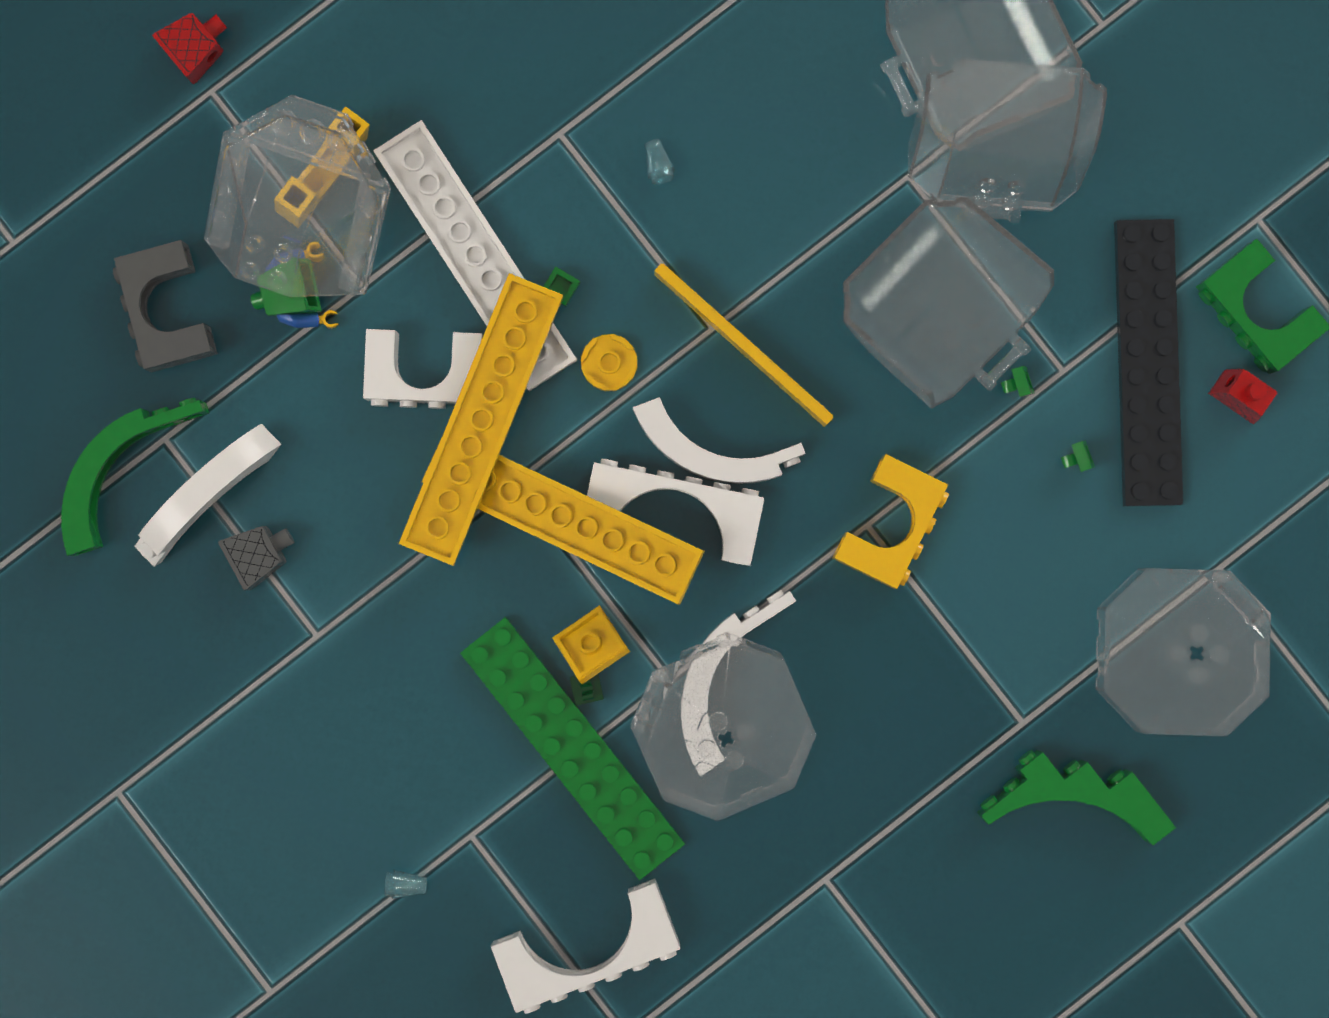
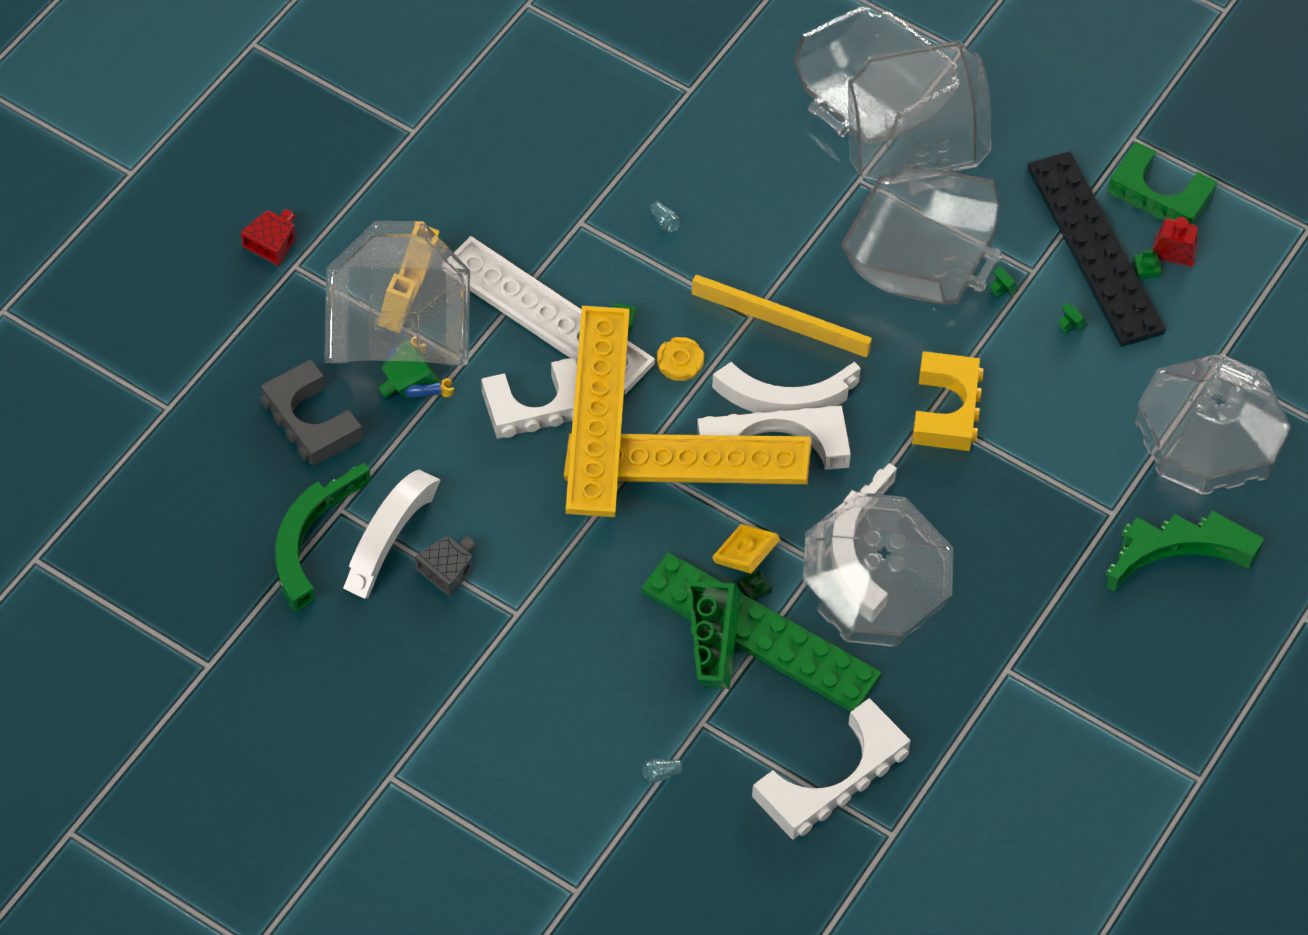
camera: 20 degrees left, 30 degrees down
(515, 740) = (714, 628): none -> green wedge
(1199, 408) = (1147, 265): none -> green tile

